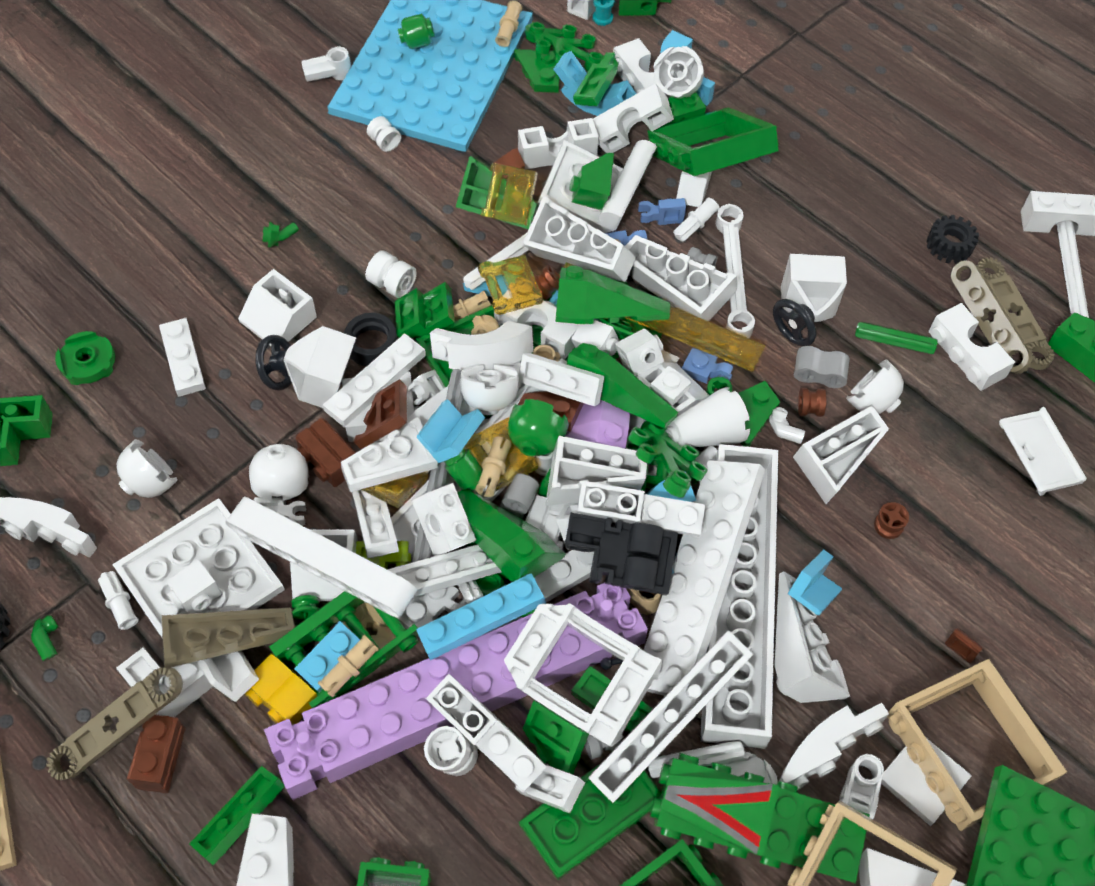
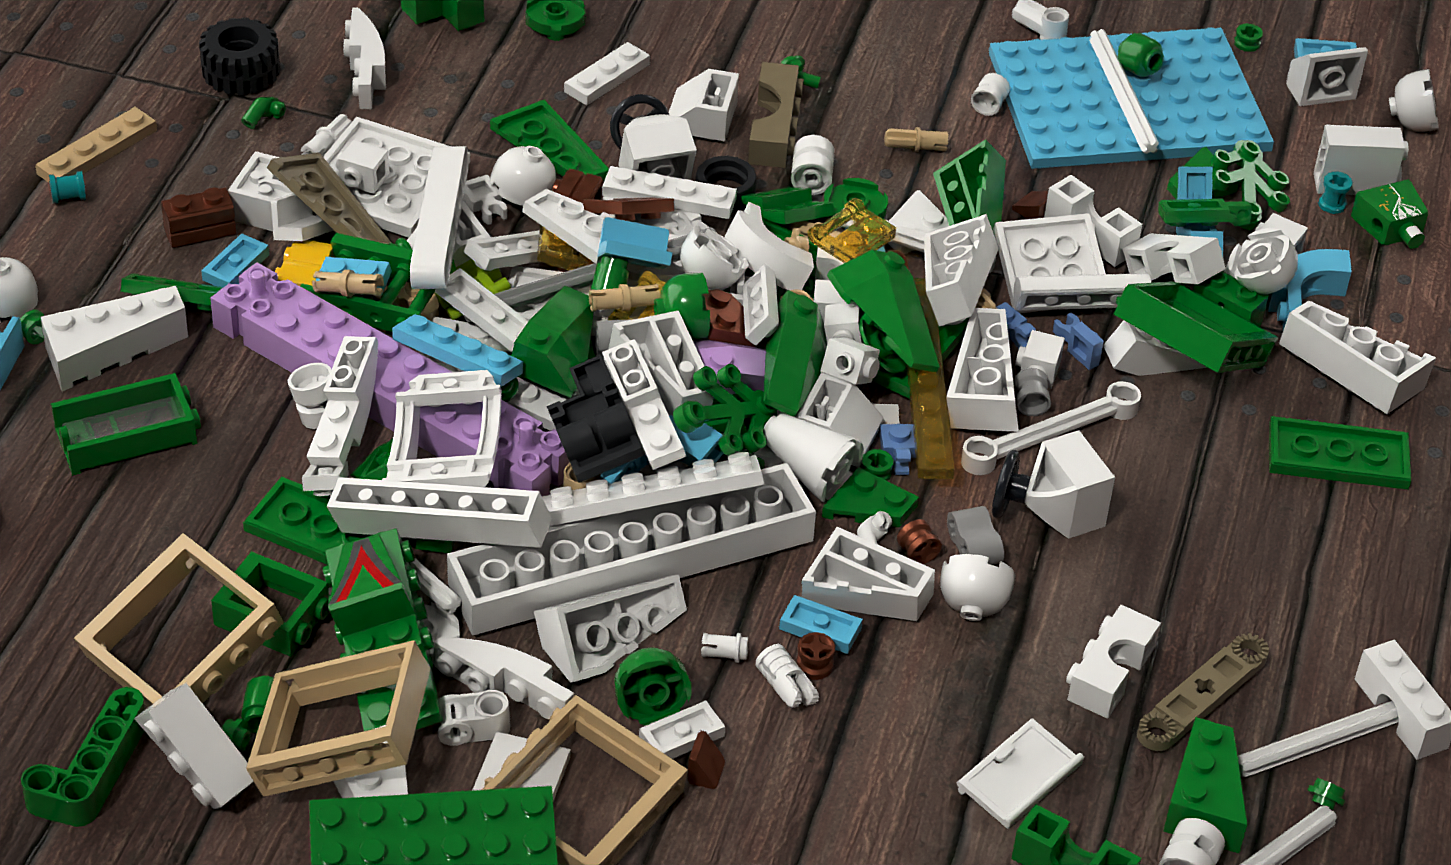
camera: 60 degrees right, 15 degrees down
(32, 856) = (67, 187): none -> teal bush
(132, 711) = (205, 172): dark tan piece -> none
(143, 471) = (462, 93): white cylinder -> none
(231, 746) = (234, 261): none -> medium azure plate
(237, 434) = (543, 128): none -> green wing
(292, 255) = (771, 135): none -> dark tan arch
(400, 199) = (916, 139): none -> tan axle
(439, 60) = (1124, 92): none -> white axle
(442, 258) = (857, 188): none -> green plate
(443, 519) = (541, 283): white brick -> none
(482, 240) = (920, 215): none -> white wing
(508, 24) = (1225, 120): tan pin -> none
(516, 197) = (968, 192): clear yellow plate -> none
(593, 183) = (1054, 253): green slope -> none
(670, 385) = (827, 397): white plate -> none
(673, 237) = (1041, 352): none -> white brick
(696, 219) = (1092, 370): white axle -> none
(765, 79) = (1355, 357): none -> white wedge
(812, 587) = (681, 602): medium azure panel -> none
(831, 135) = (1339, 452): none -> green tile
(859, 570) = (728, 646): none -> white pin
(861, 502) = (807, 617): none -> medium azure plate
(883, 642) = (651, 685): none -> green cylinder
(896, 337) = (1075, 595): green axle -> none
(905, 549) = (786, 677): none -> white hinge
(931, 644) = (678, 732): none -> white plate
(948, 249) = (1266, 619): black tyre -> none
(982, 299) = (1175, 669): piece -> none

